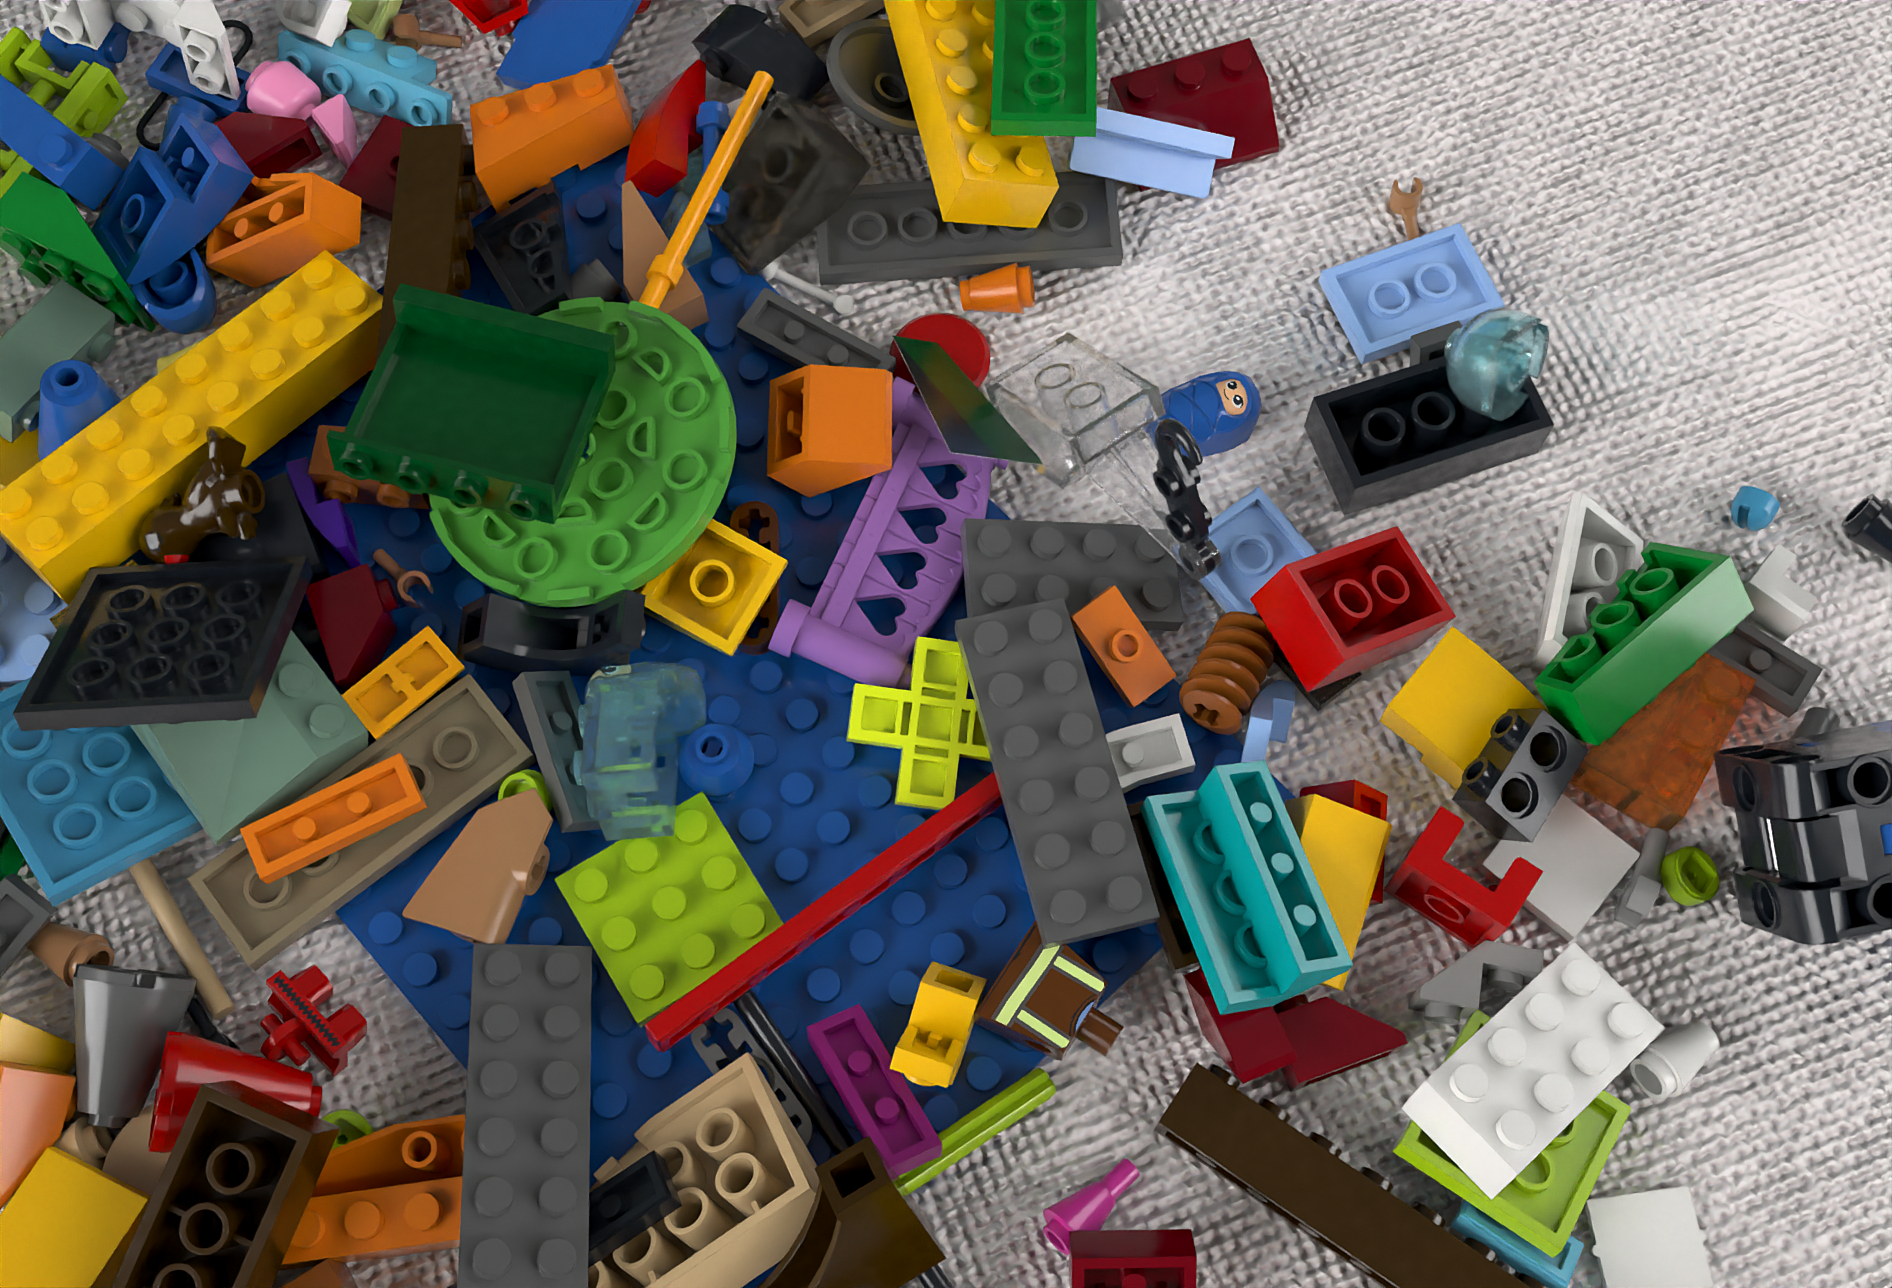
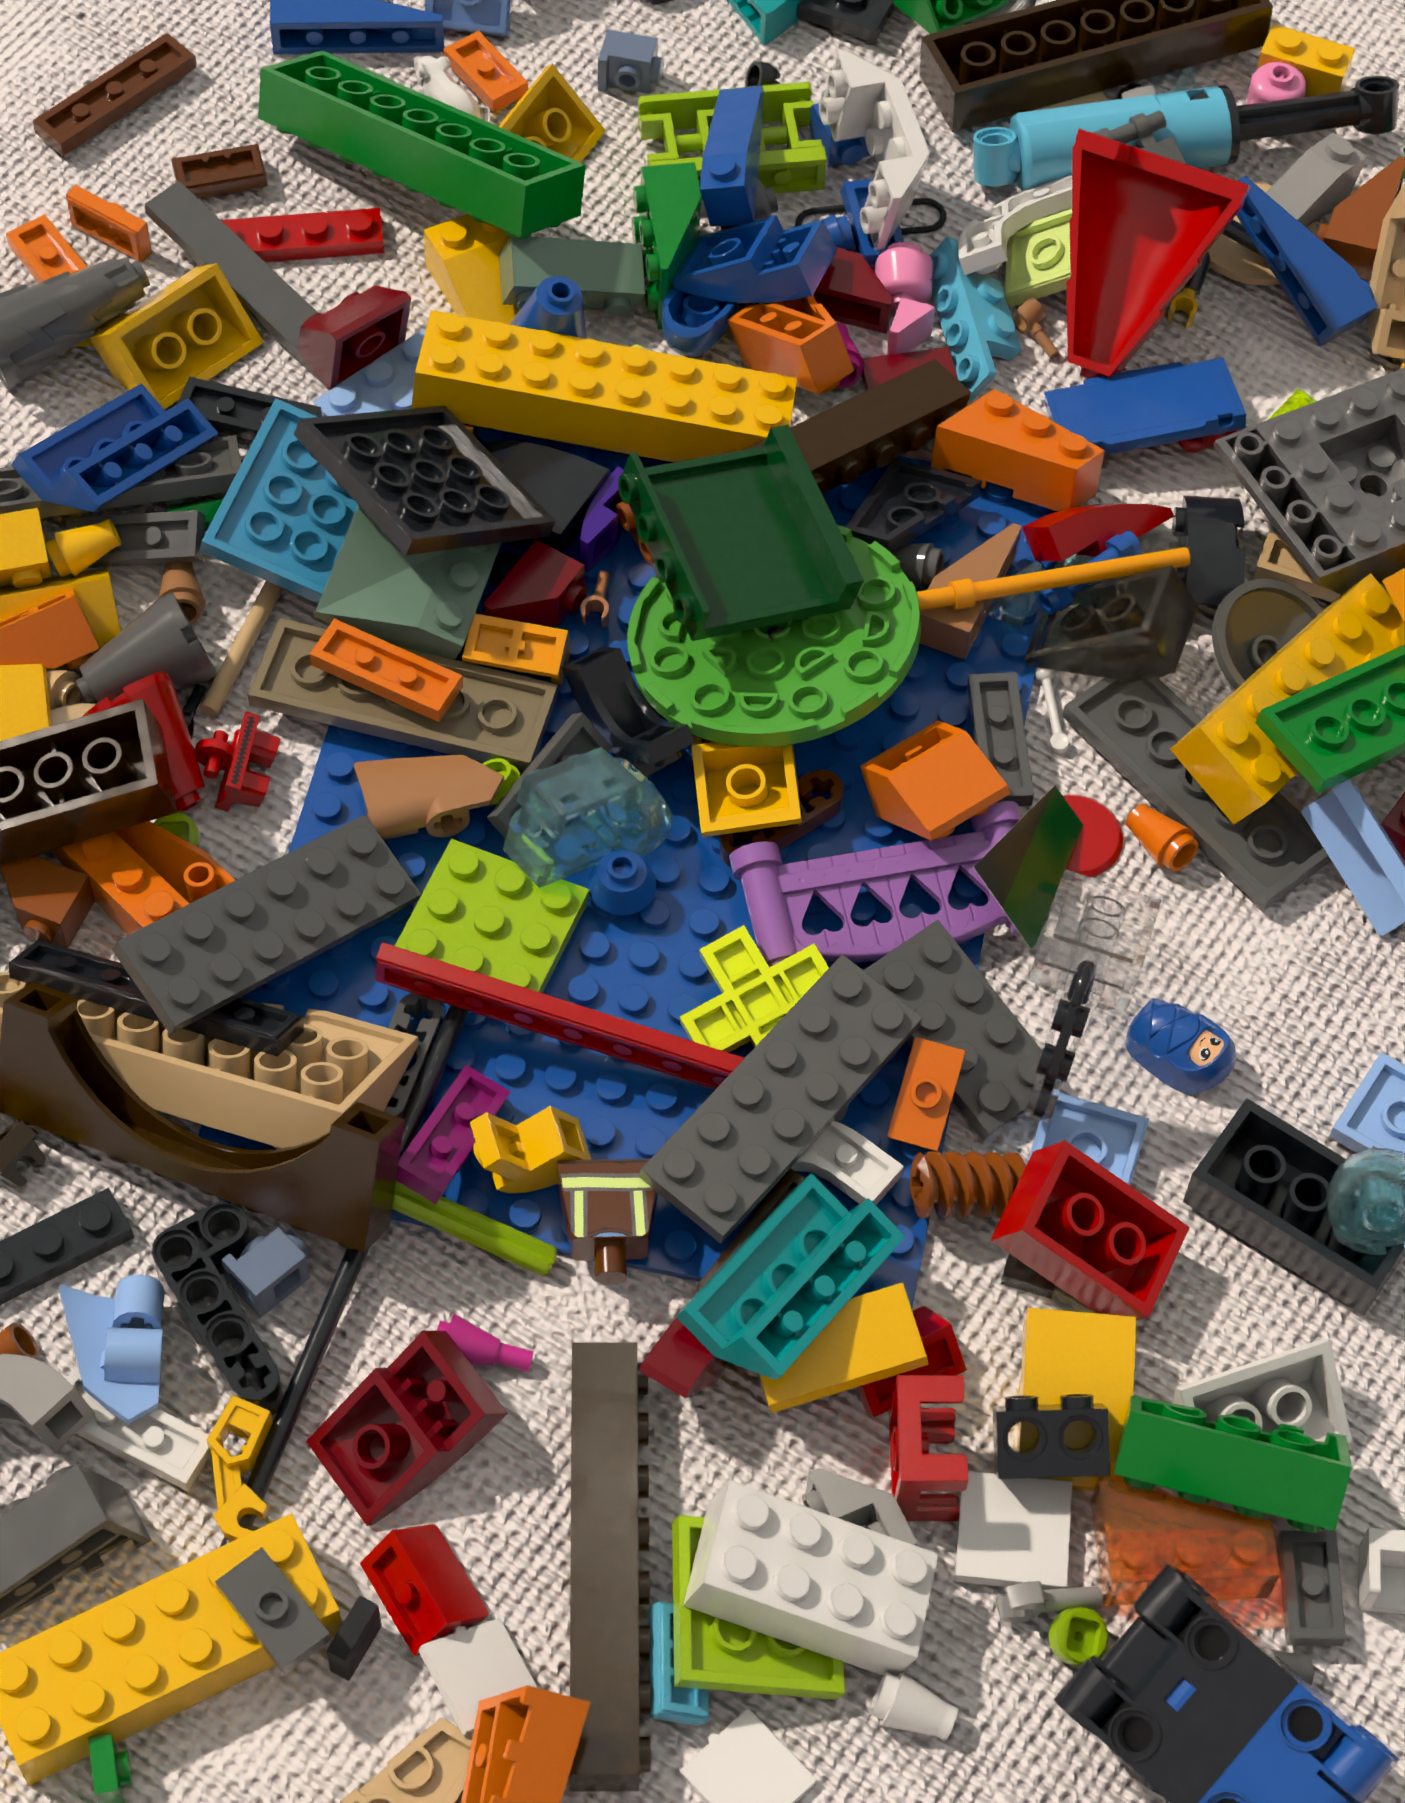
camera: 50 degrees right, 10 degrees down
(215, 501) = (548, 440): dark brown animal -> none
(1269, 719) = (952, 1238): light blue slope -> none
(1332, 1039) = (726, 1433): dark red slope -> none

